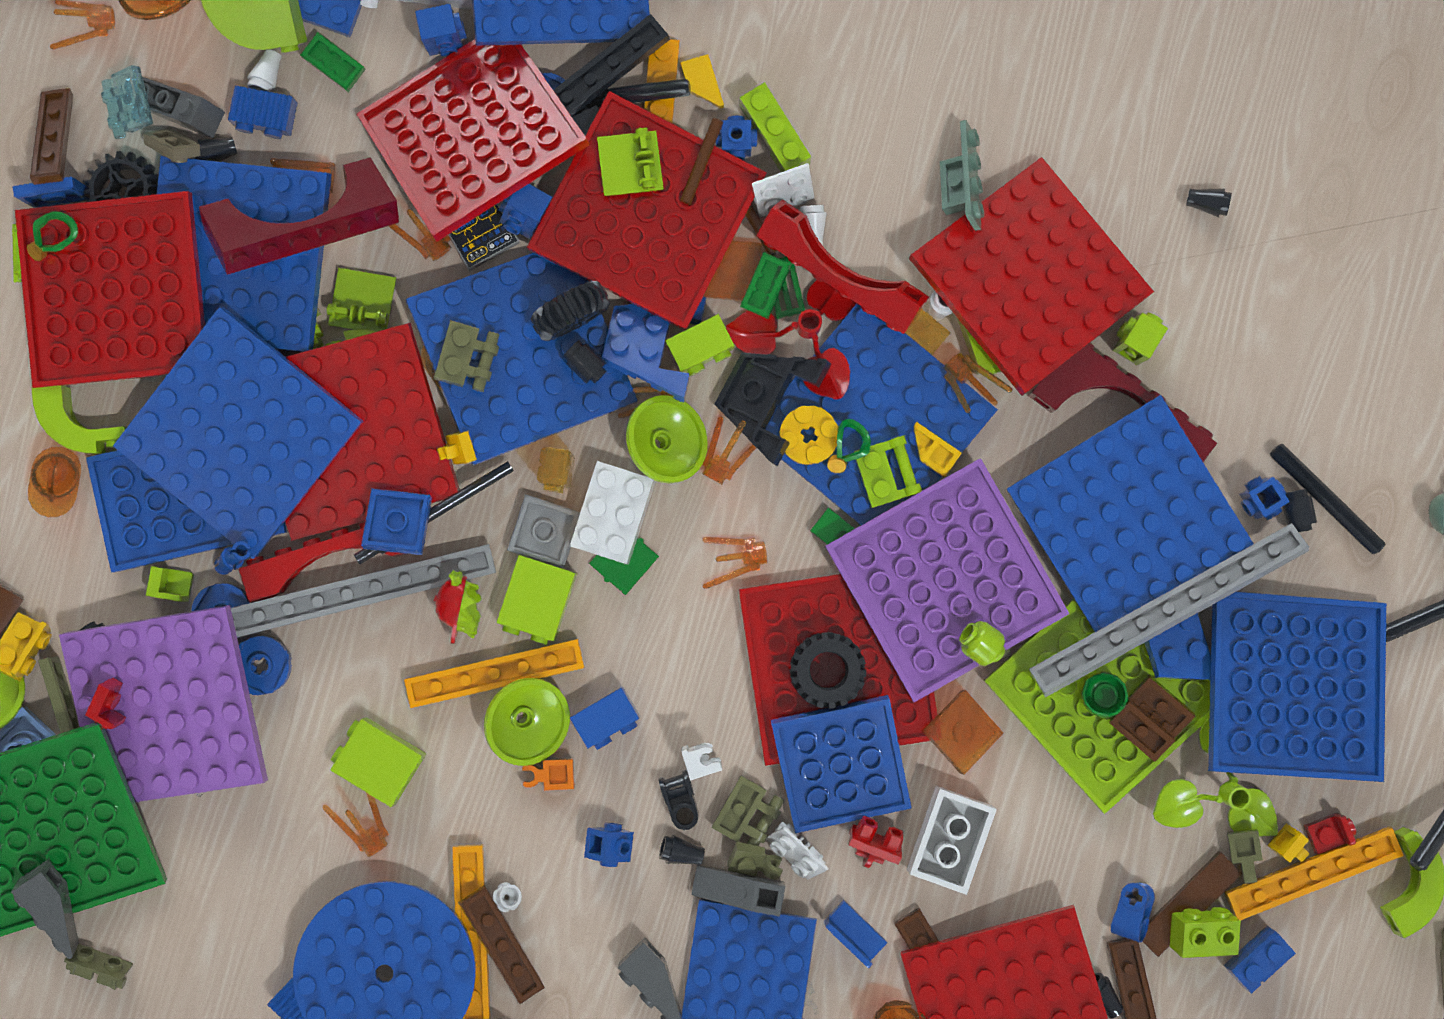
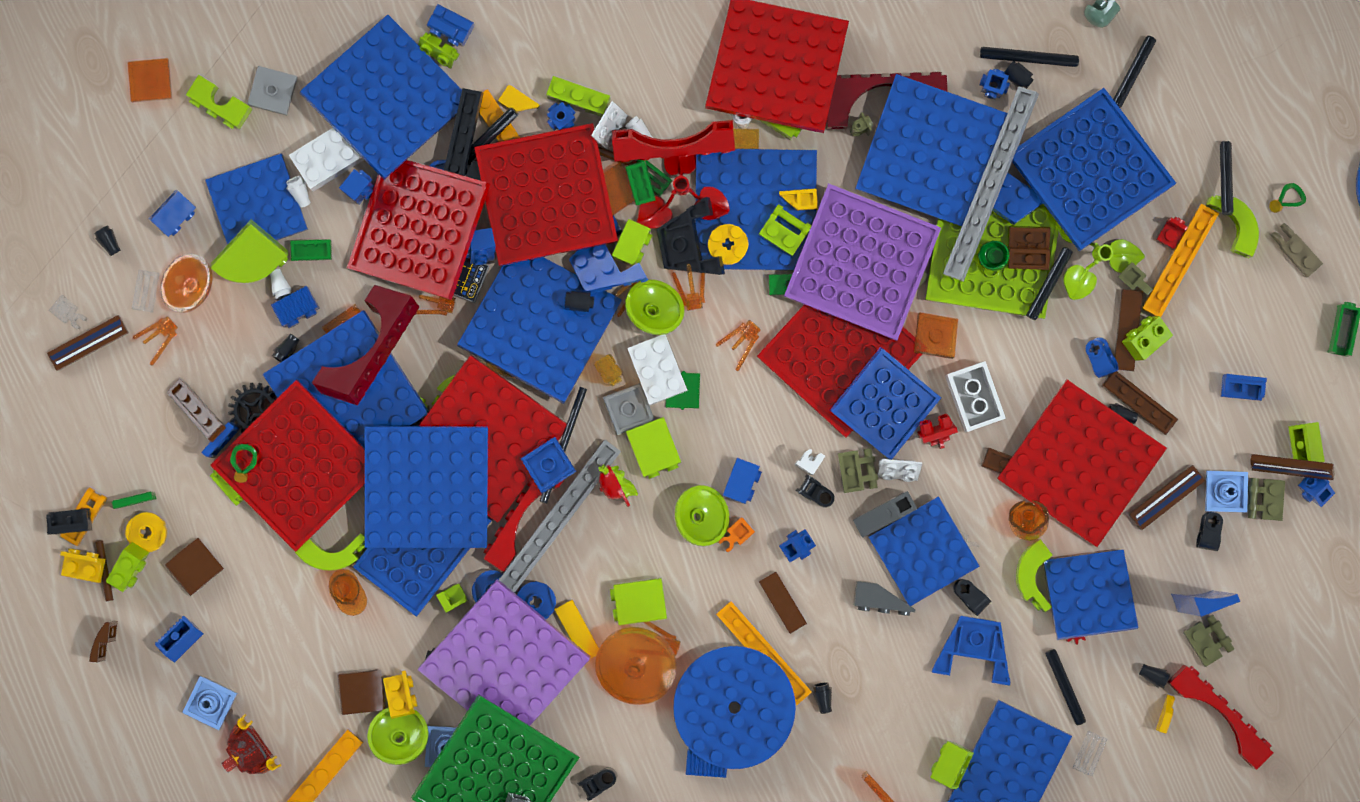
camera: 40 degrees left, 0 degrees up
(59, 693) = (441, 703): olive tile -> none
(104, 702) = (472, 682): red bracket -> none
(126, 102) = (222, 357): clear light blue plate -> none
(158, 930) = (597, 783): none -> black piece
(172, 144) = (263, 363): dark tan plate -> none
(183, 108) = (247, 341): dark grey slope -> none
(232, 558) = (476, 555): blue pin -> none
(283, 735) = (577, 628): none -> yellow tile
(312, 832) = (636, 665): none -> clear orange dish
(361, 300) = (431, 365): lime hinge -> none
(457, 354) = (509, 351): olive plate -> none
(458, 448) = (549, 400): yellow tile -> none
(493, 673) = (663, 505): light orange plate -> none
(501, 945) = (783, 644): reddish brown tile -> none
(513, 893) = (769, 614): white plate -> none
(540, 895) = (782, 602): none -> reddish brown tile
(570, 310) = (550, 280): black gear -> none
(630, 163) = (517, 176): lime hinge -> none
(679, 851) = (838, 519): black cone -> none
(701, 161) = (554, 145): reddish brown bar -> none
(751, 858) = (878, 493): olive plate -> none
(838, 462) = (755, 246): green piece -> none
(854, 670) = (854, 351): black tyre -> none
(855, 933) = (964, 487): blue panel -> none
(960, 369) = (779, 145): clear orange plant -> none
(961, 181) = (699, 44): sand green bracket -> none
(982, 643) = (907, 279): lime head -> none
(1072, 423) = (861, 125): none -> olive hinge
(1139, 337) = (860, 51): lime brick -> none
(1142, 778) = (1049, 283): none -> black axle
(1259, 959) = (1187, 329): blue brick -> none
(1289, 844) = (1155, 256): yellow tile -> none

